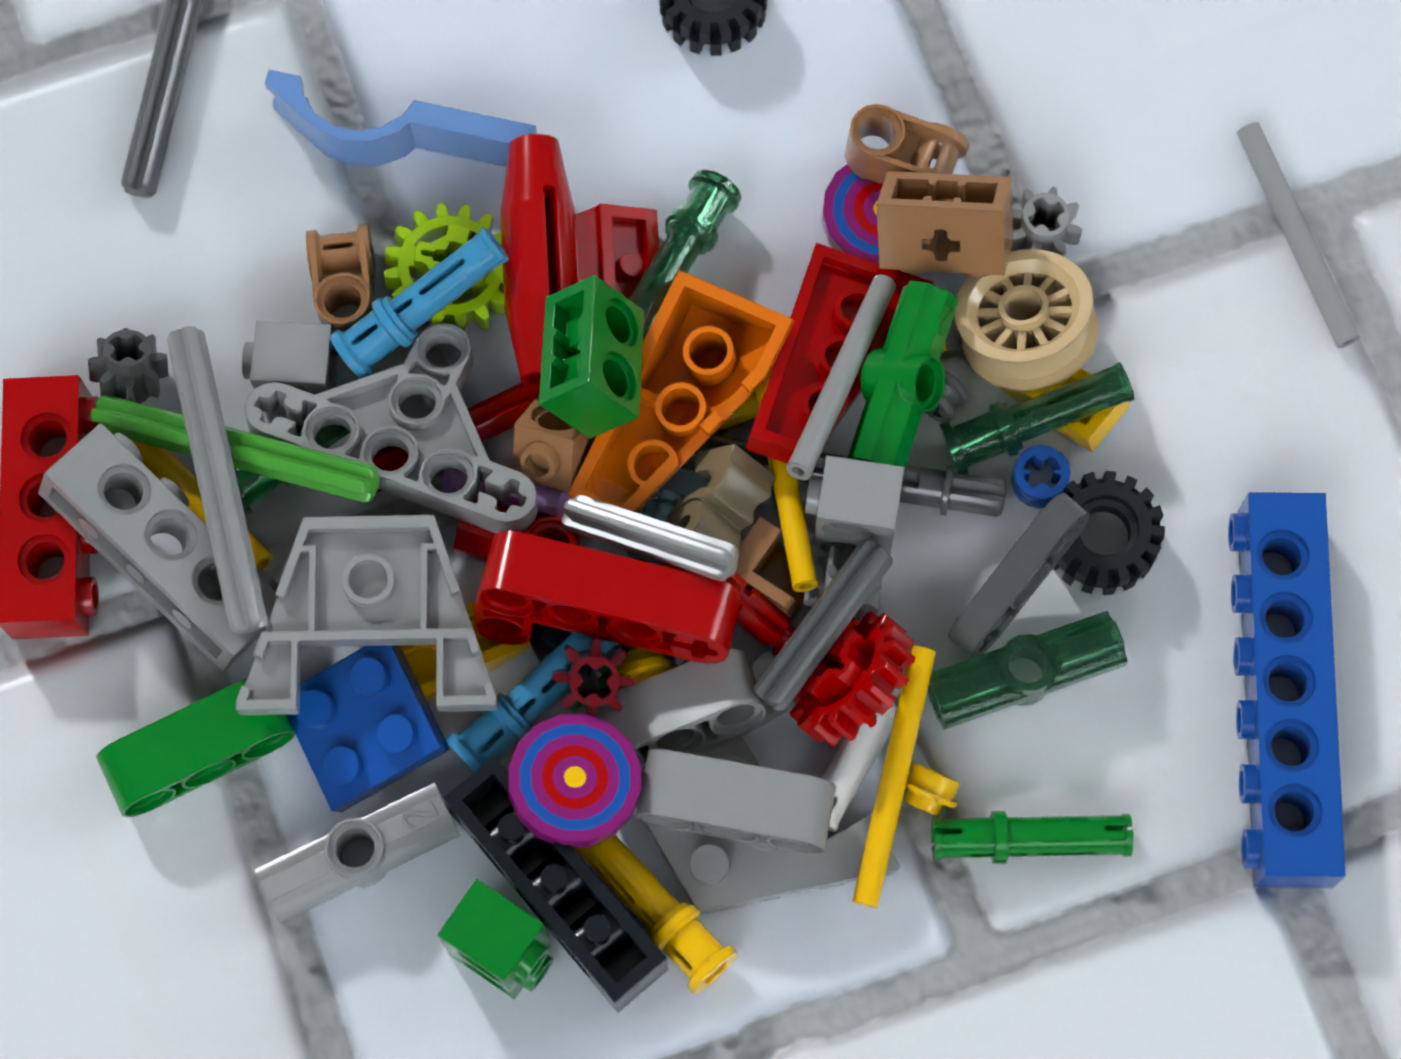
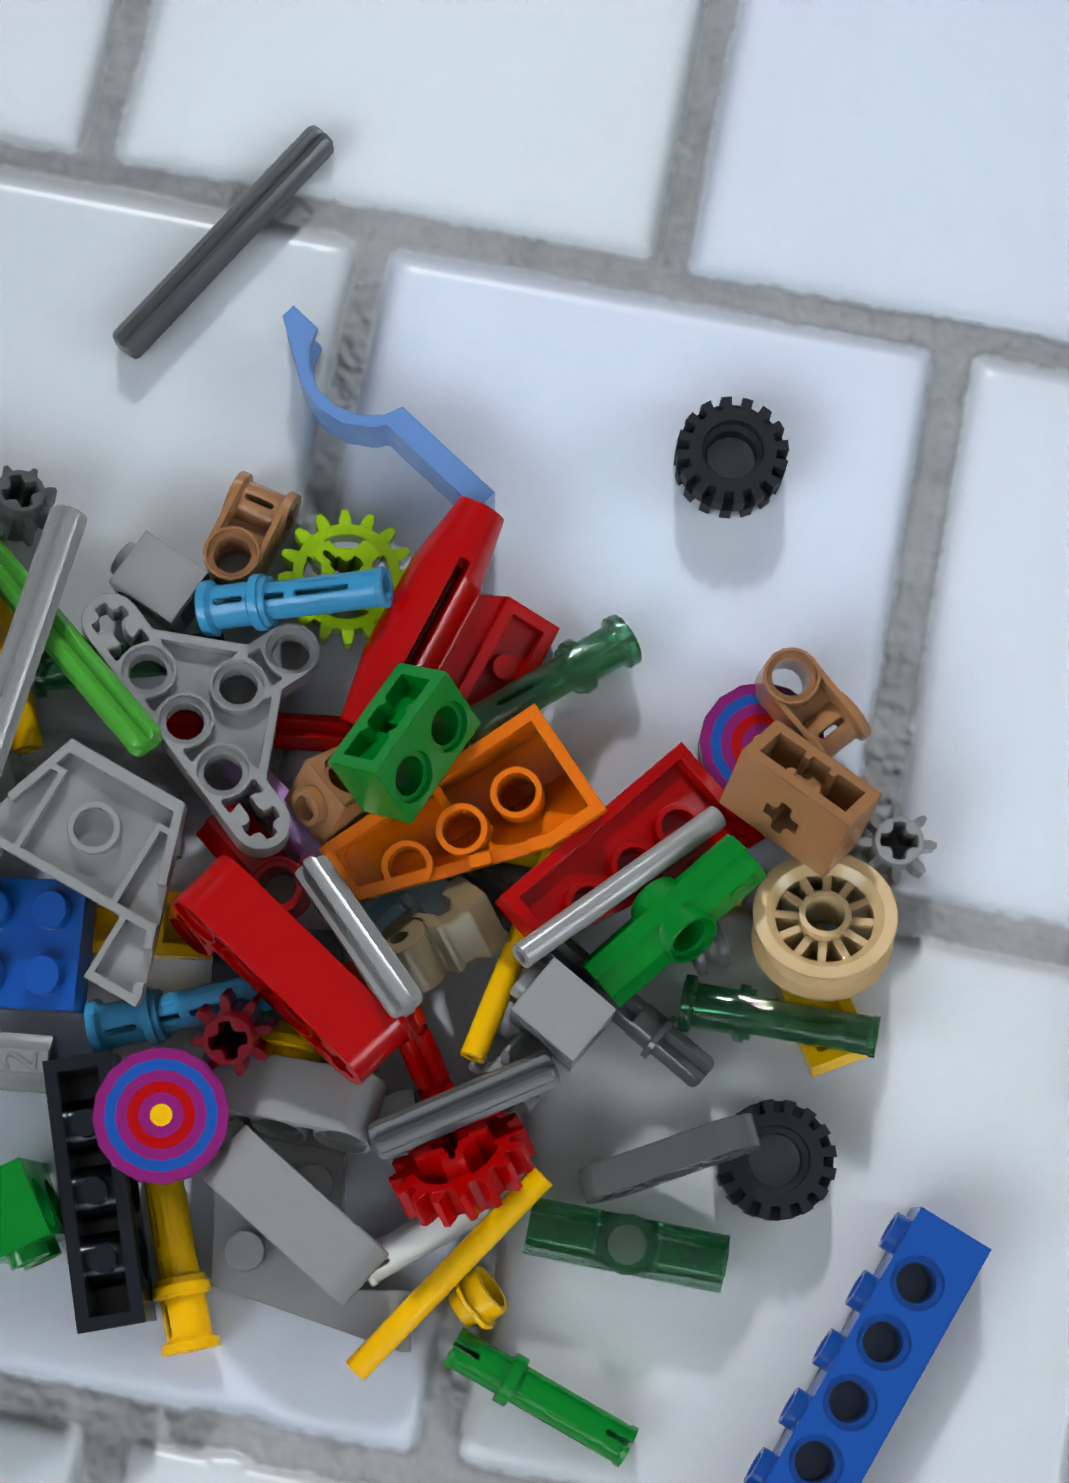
camera: 25 degrees right, 5 degrees up
(766, 567) = (449, 1015): medium nougat panel -> none
(1039, 458) = (761, 1055): blue bush -> none

